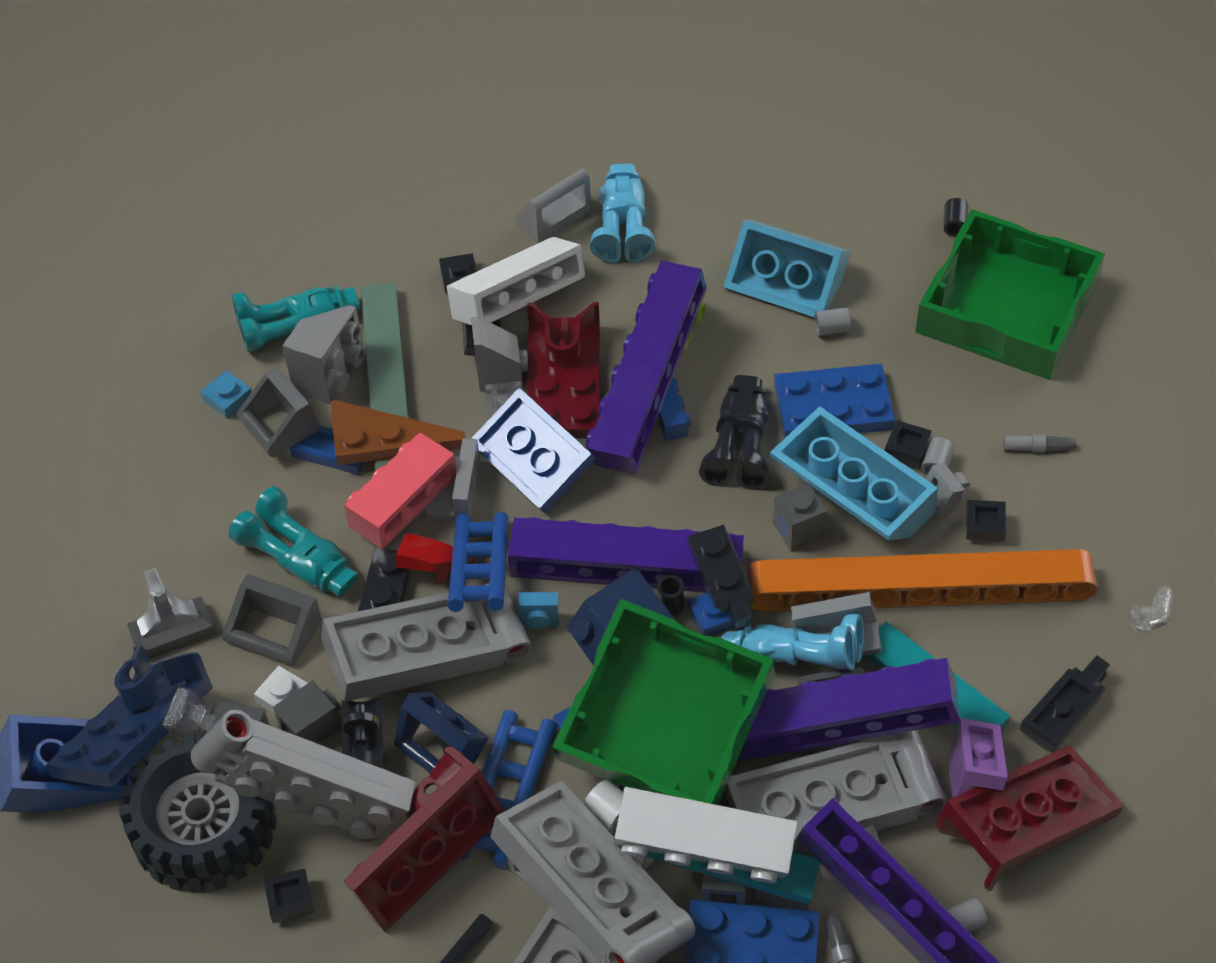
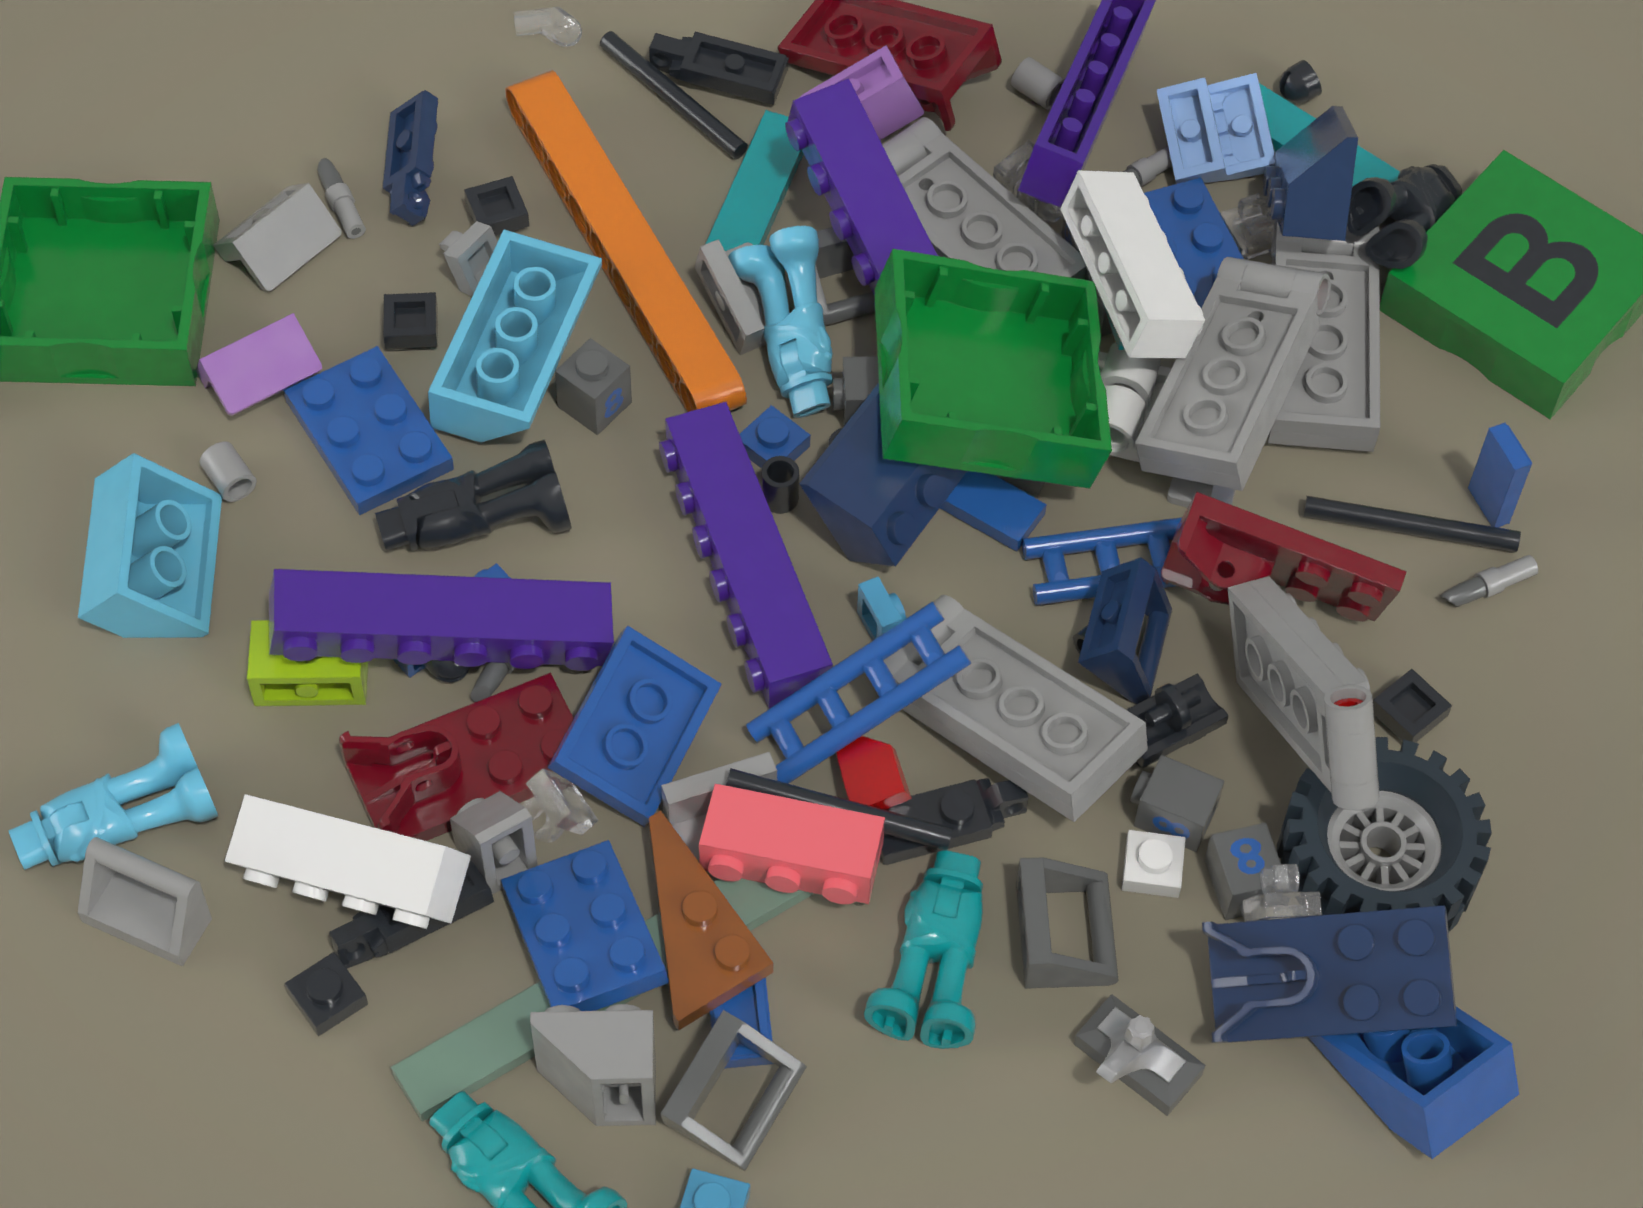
camera: 120 degrees left, 5 degrees up
(407, 521) = (895, 823): none -> black bar
(417, 385) = (584, 930): none -> blue plate
(722, 574) = (744, 410): black hinge -> none
(905, 352) = (259, 365): none -> medium lavender panel
(938, 451) = (419, 280): light grey hinge -> none
(1013, 396) = (281, 236): none -> light grey panel
(1048, 484) = (411, 156): none -> dark blue hinge
(1053, 668) = (673, 95): none -> black bar

